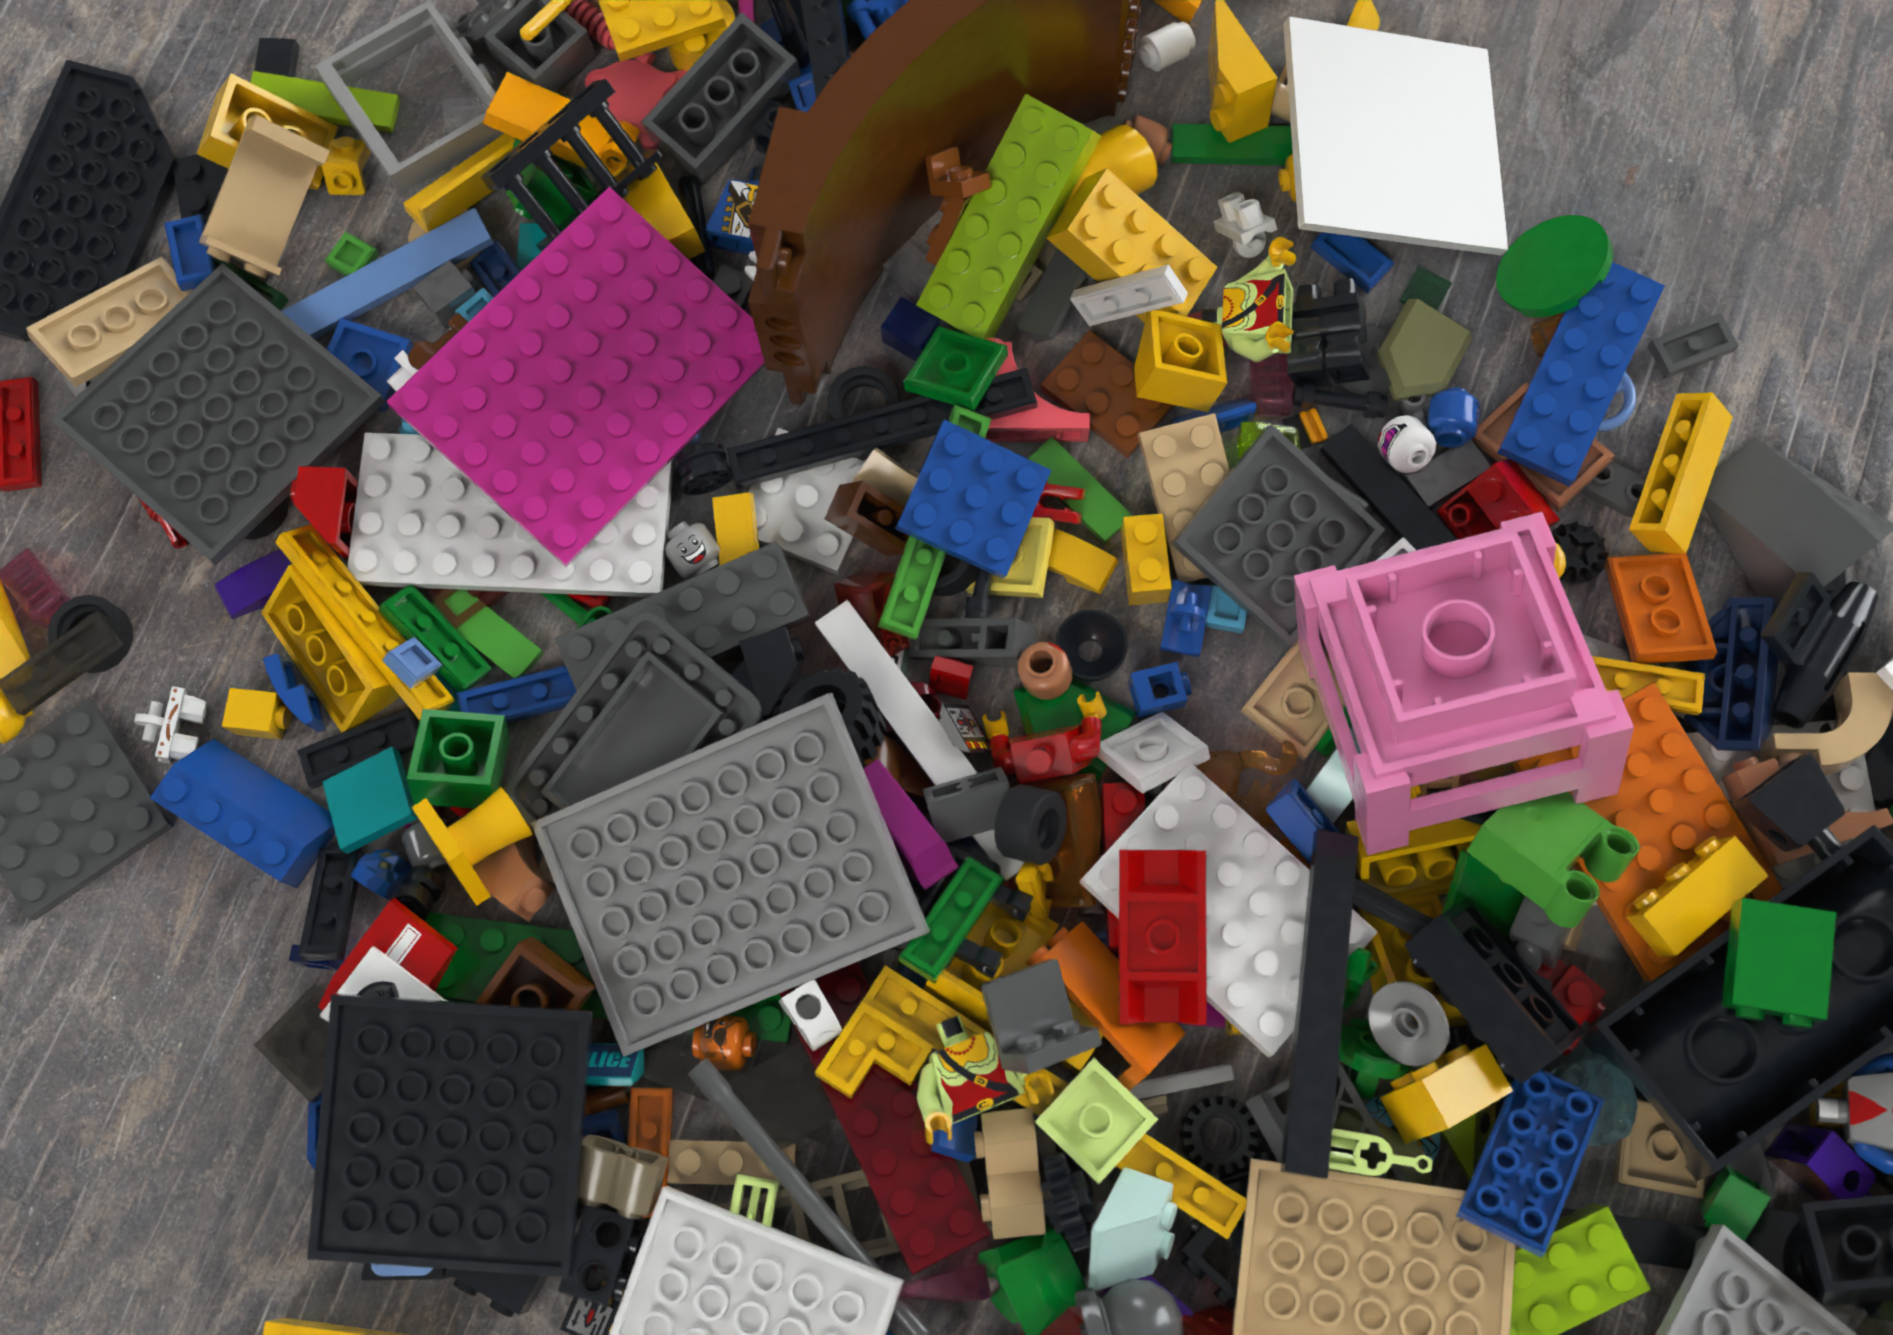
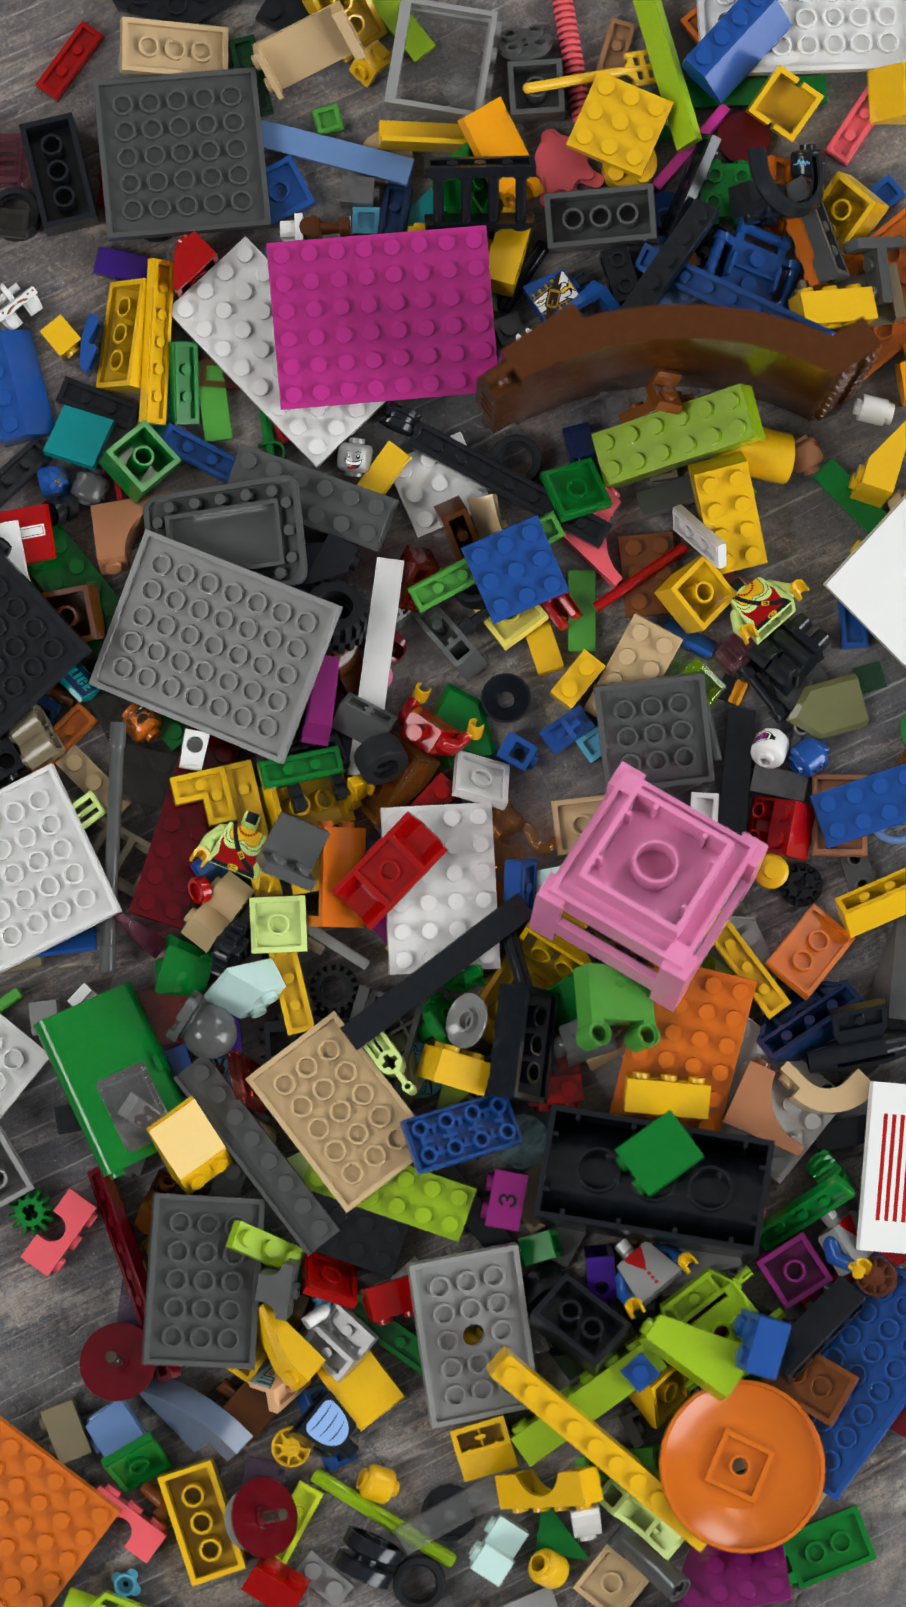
camera: 40 degrees right, 10 degrees up
(101, 548) = (59, 174): none -> black brick
(187, 254) = (240, 48): blue tile -> none
(412, 662) = (160, 388): medium blue tile -> none
(474, 837) = (112, 511): yellow plant -> none
(951, 677) = (421, 647): red plate -> none
(963, 728) = (400, 680): piece -> none
(969, 1167) = (199, 889): none -> red tile
(1045, 670) = (468, 689): nougat head -> none
(1104, 399) = (640, 577): none -> red bar
(1244, 224) = (808, 550): white hips -> none
(1648, 1186) = (505, 1199): none -> magenta brick
(1795, 807) = (755, 1101): black torso -> none

